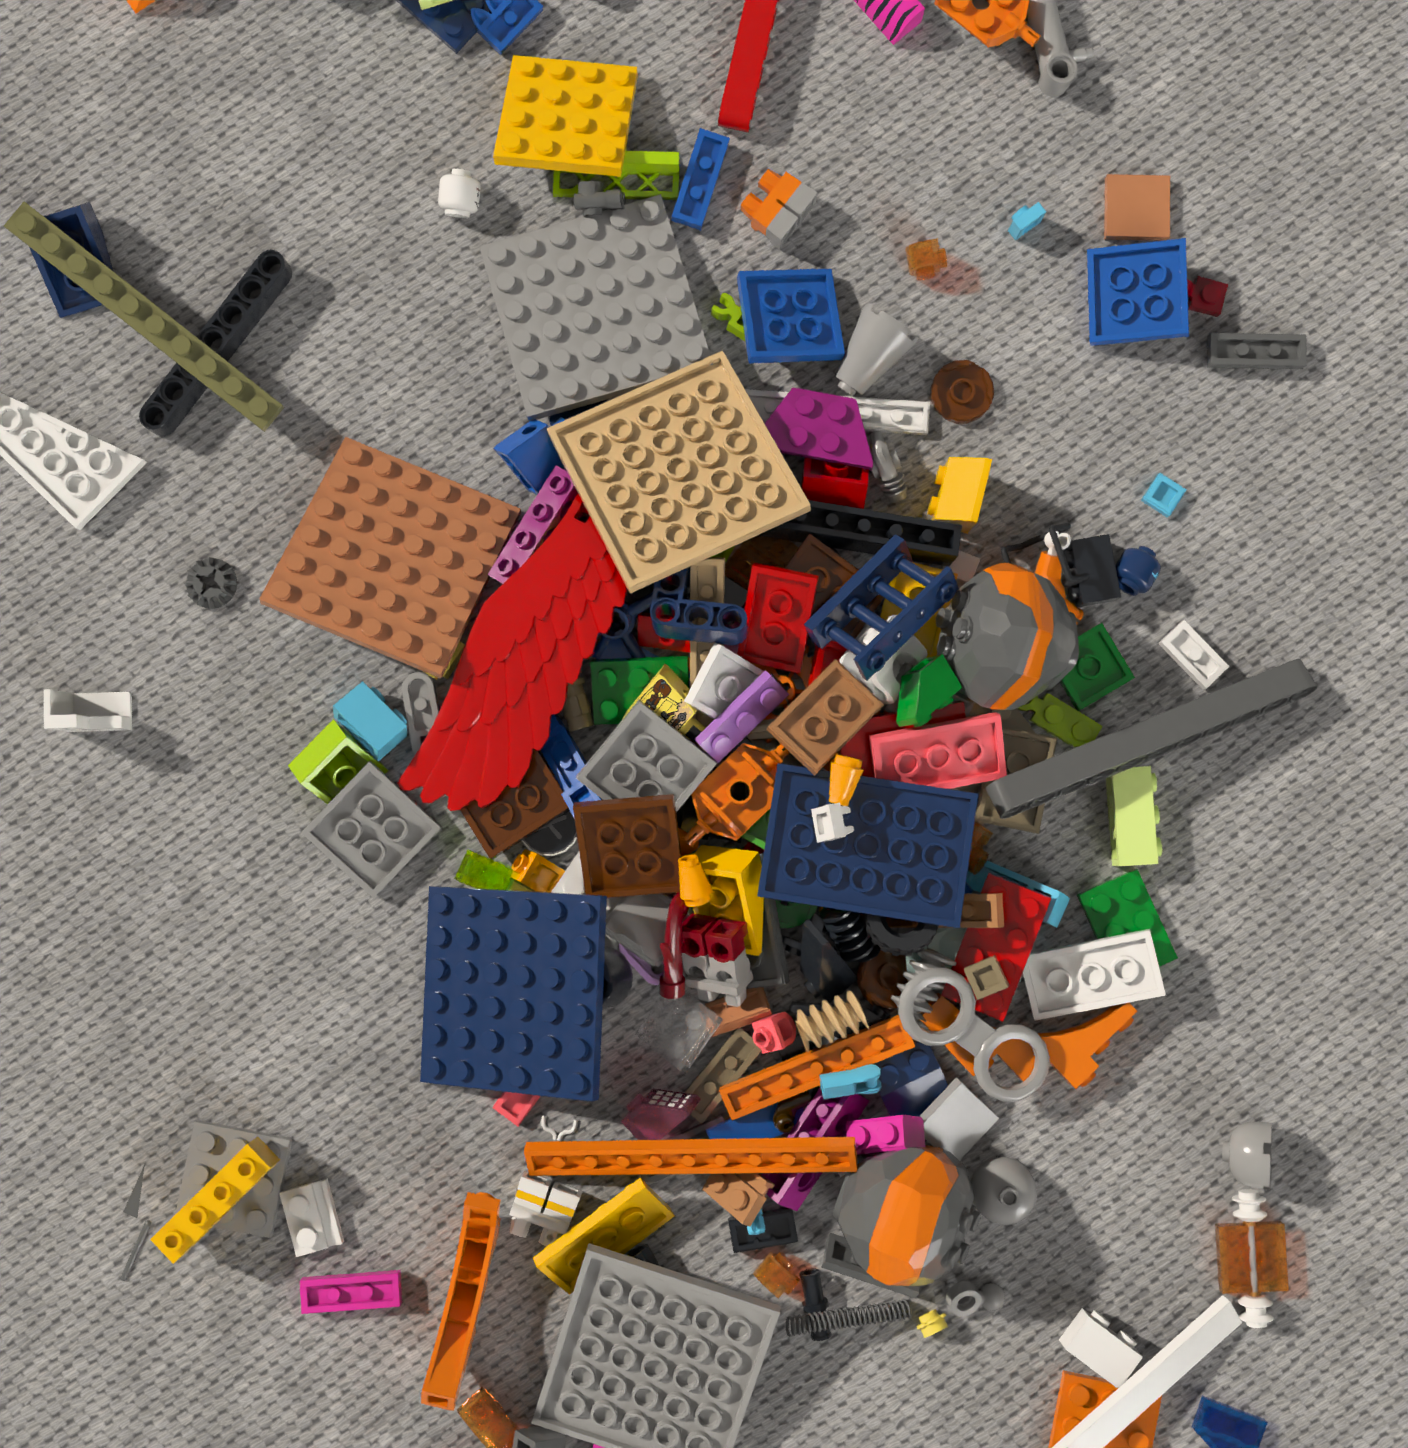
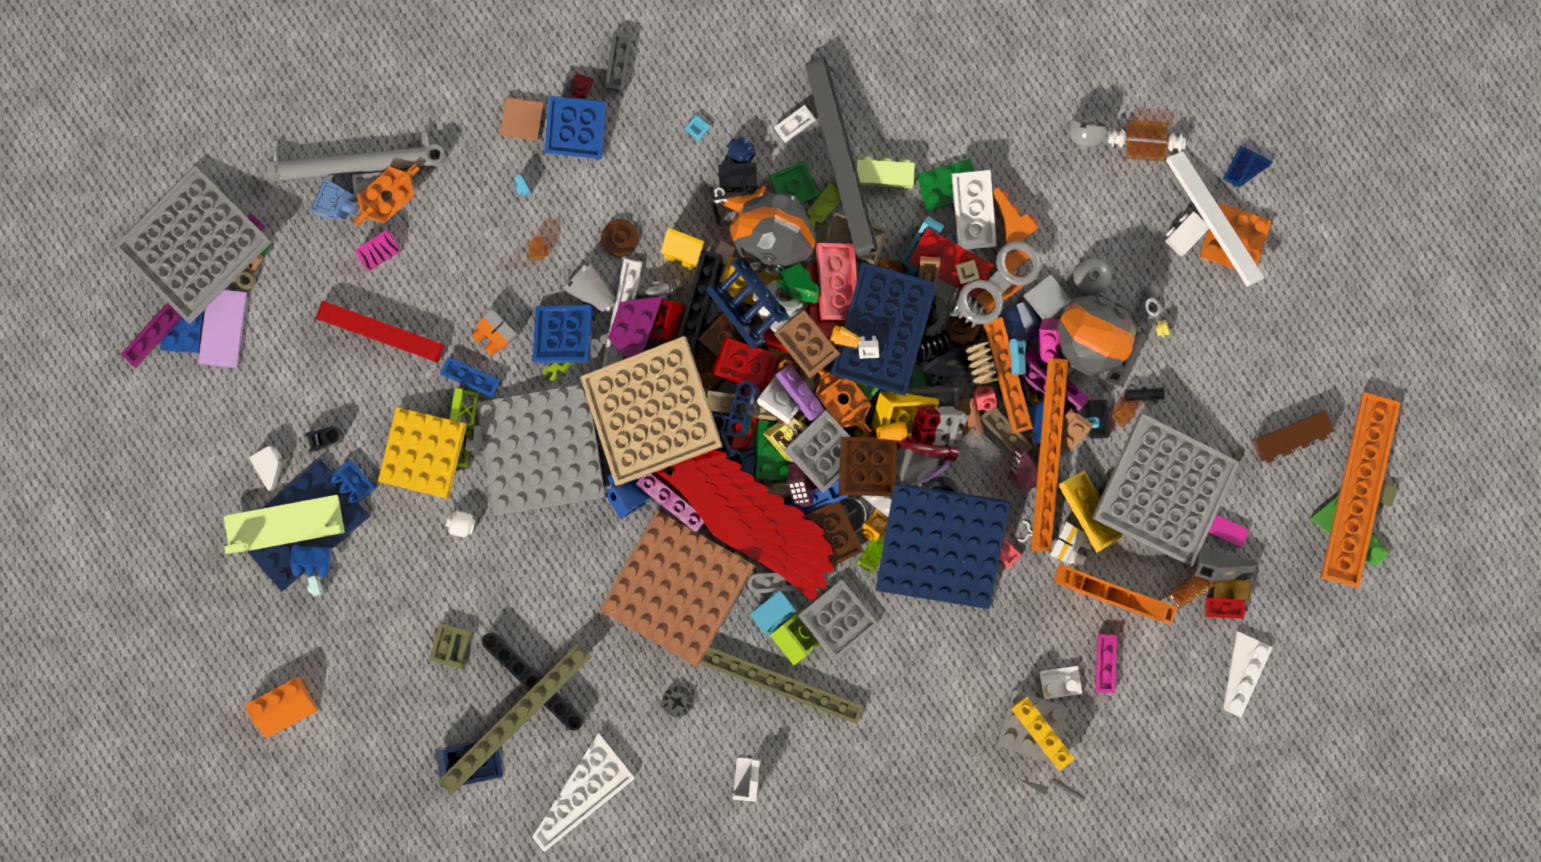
camera: 85 degrees left, 0 degrees up
(255, 751) = (782, 685): none -> olive plate
(261, 196) = (445, 643): none -> olive plate
(582, 738) = (800, 487): none -> clear pink slope
(883, 1314) = (1154, 371): dark grey piece -> none

